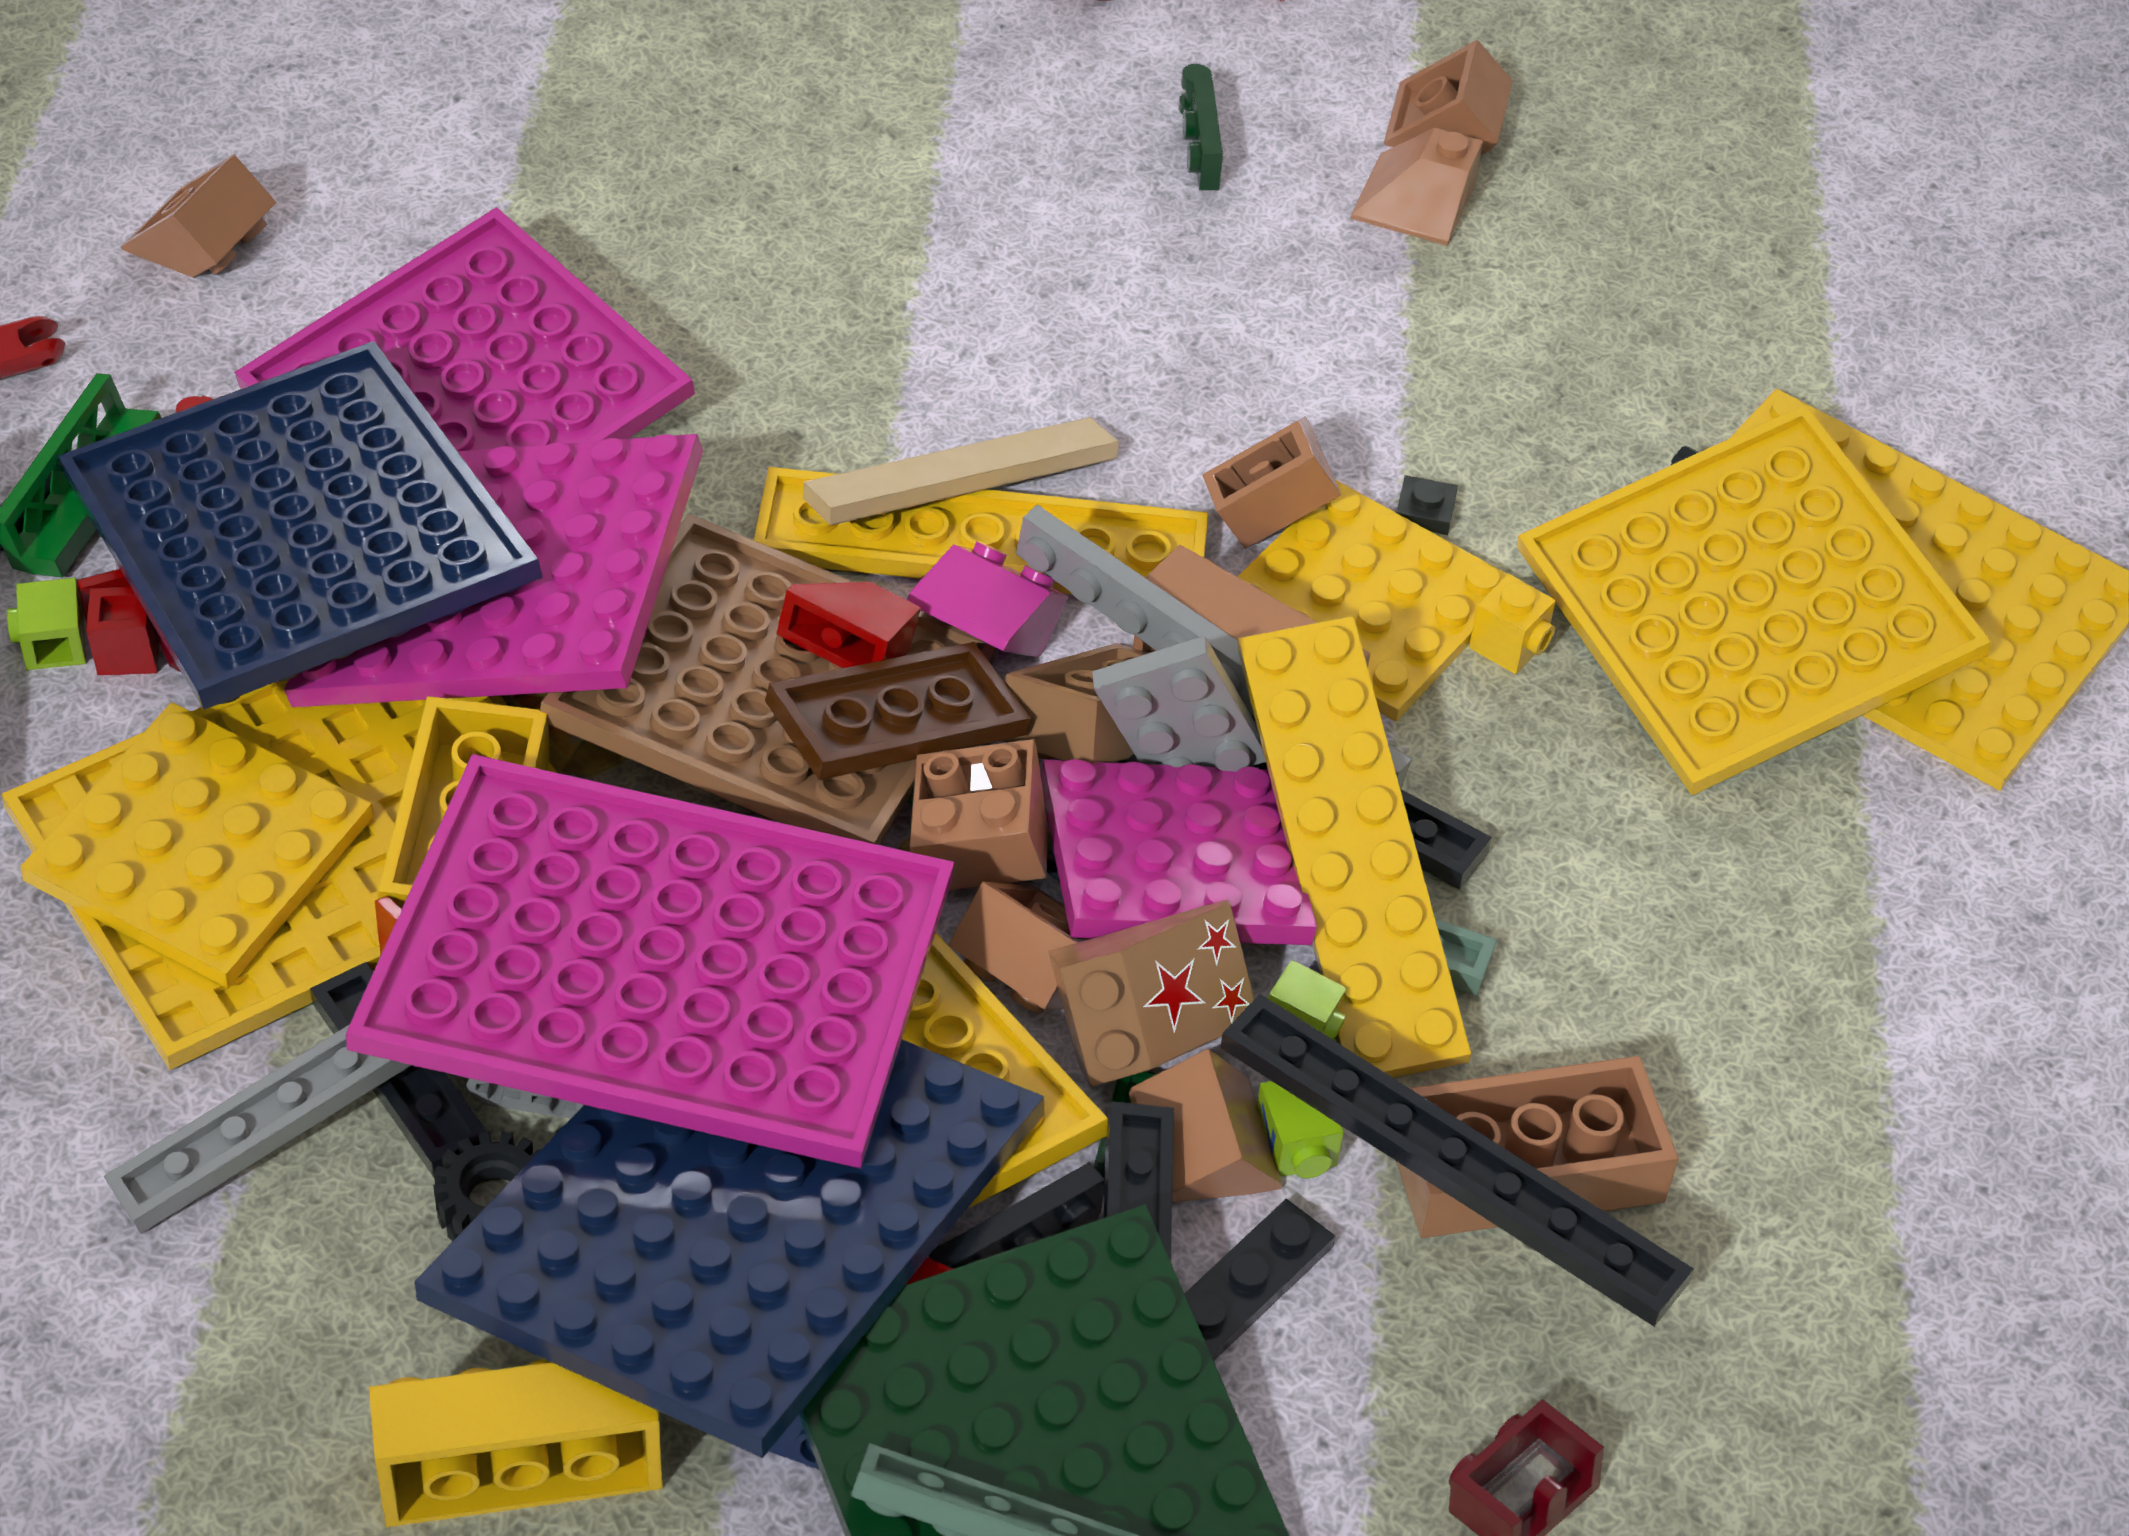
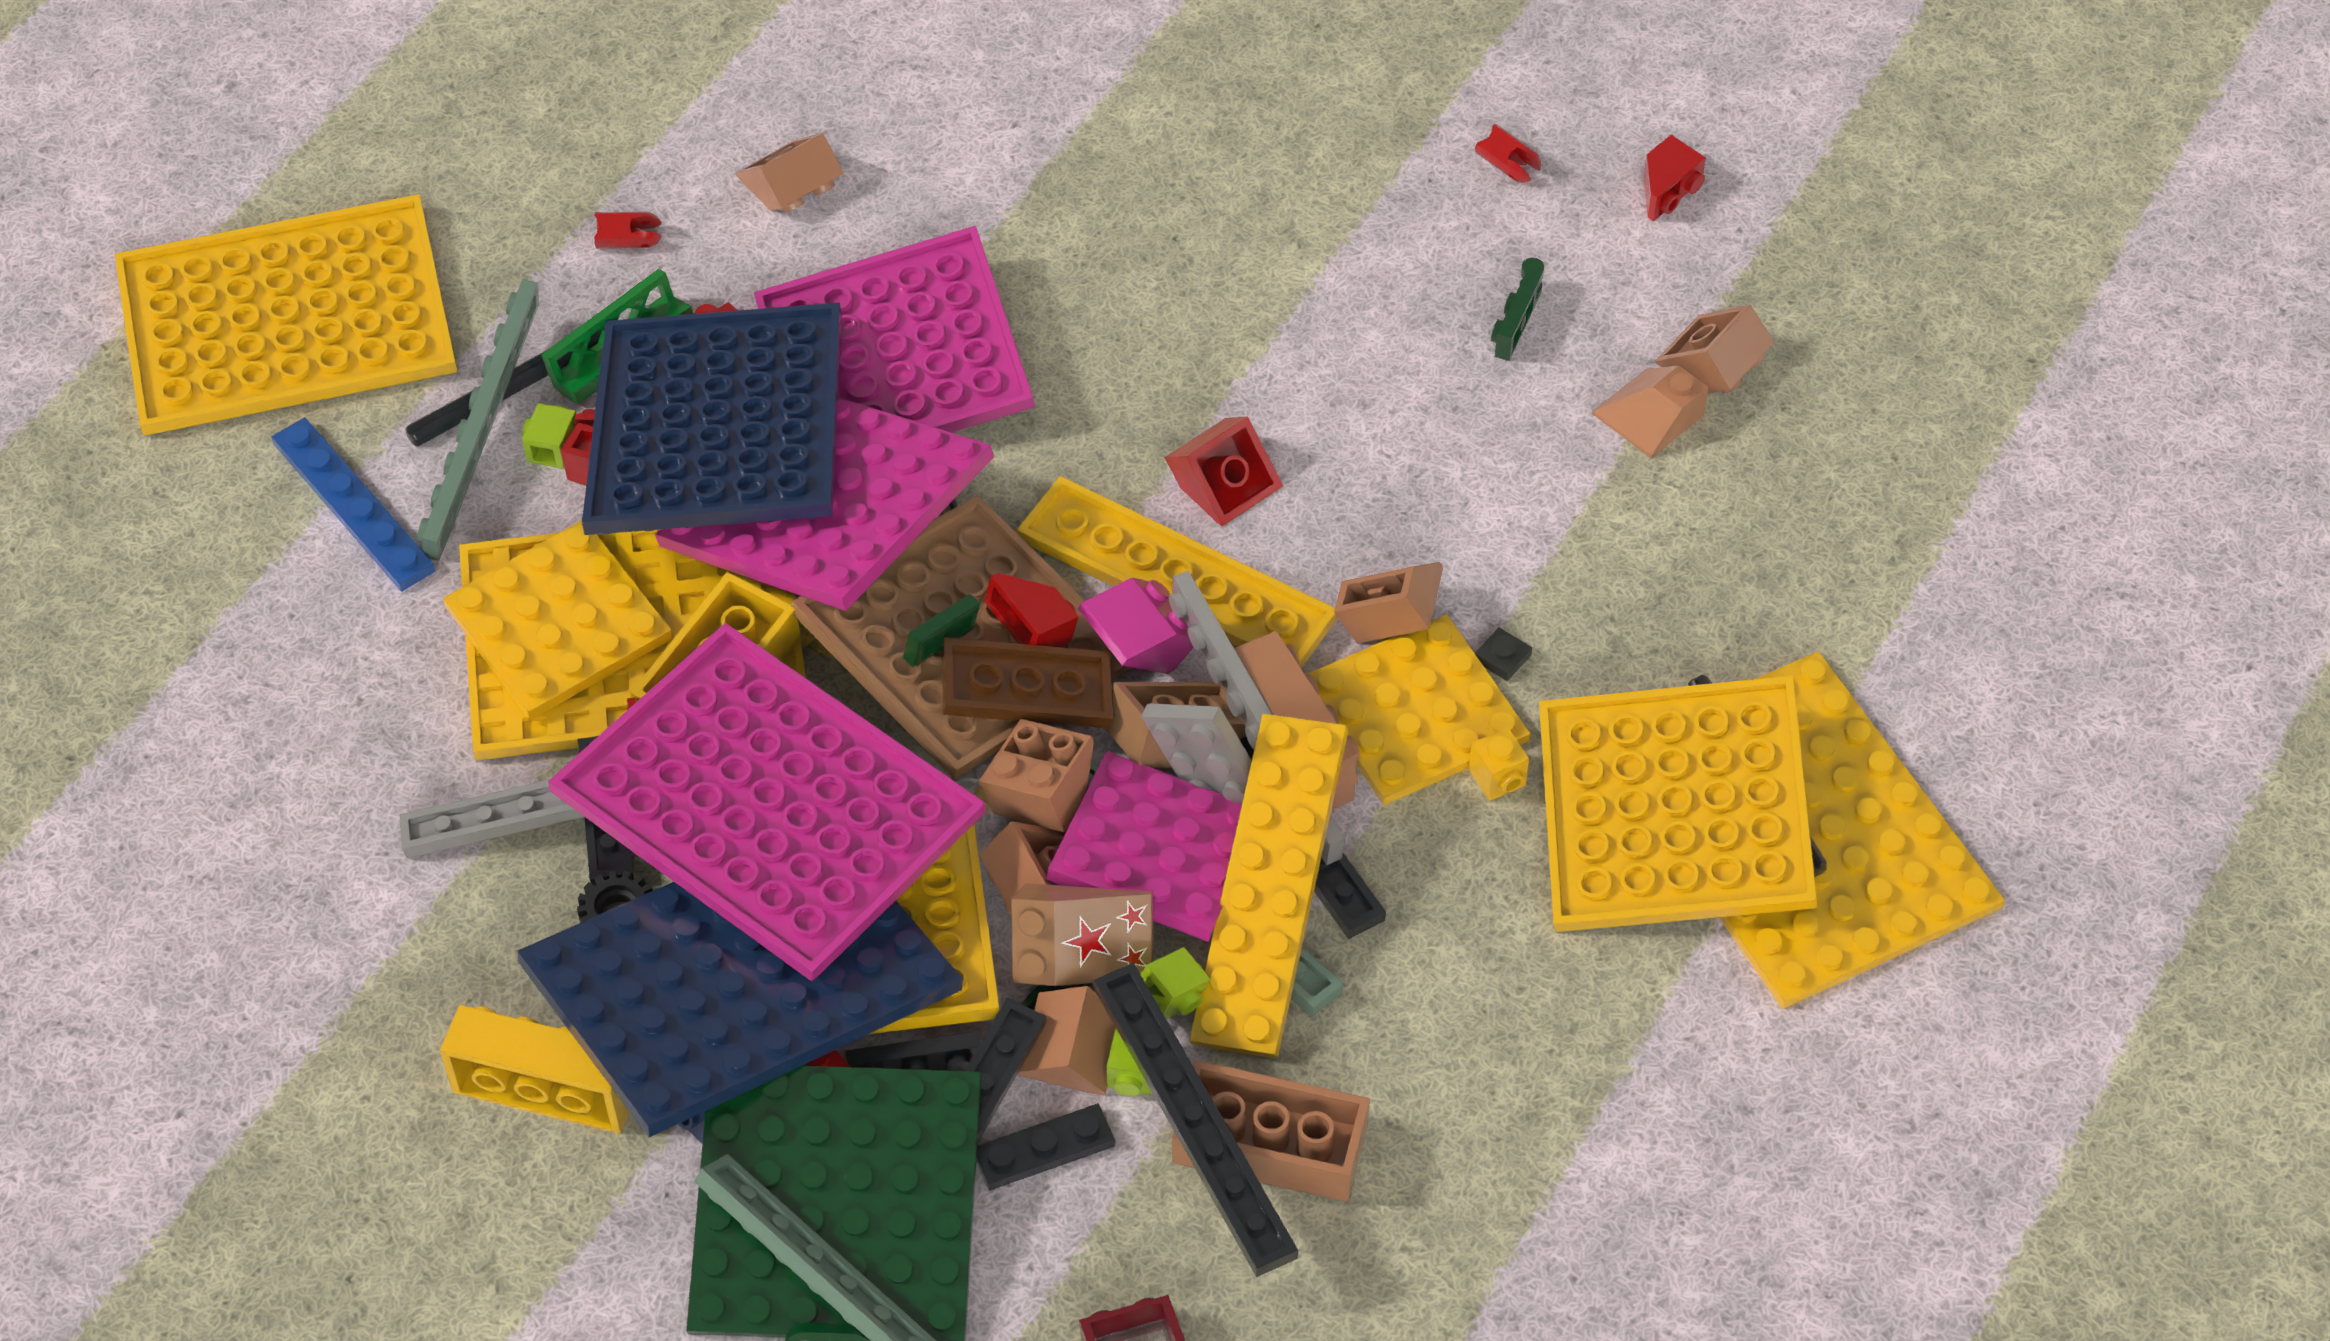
camera: 30 degrees right, 5 degrees up
(763, 667) = (950, 623): none -> dark green tile
(959, 470) = (1185, 521): tan tile -> none
(965, 392) = (1225, 469): none -> red slope

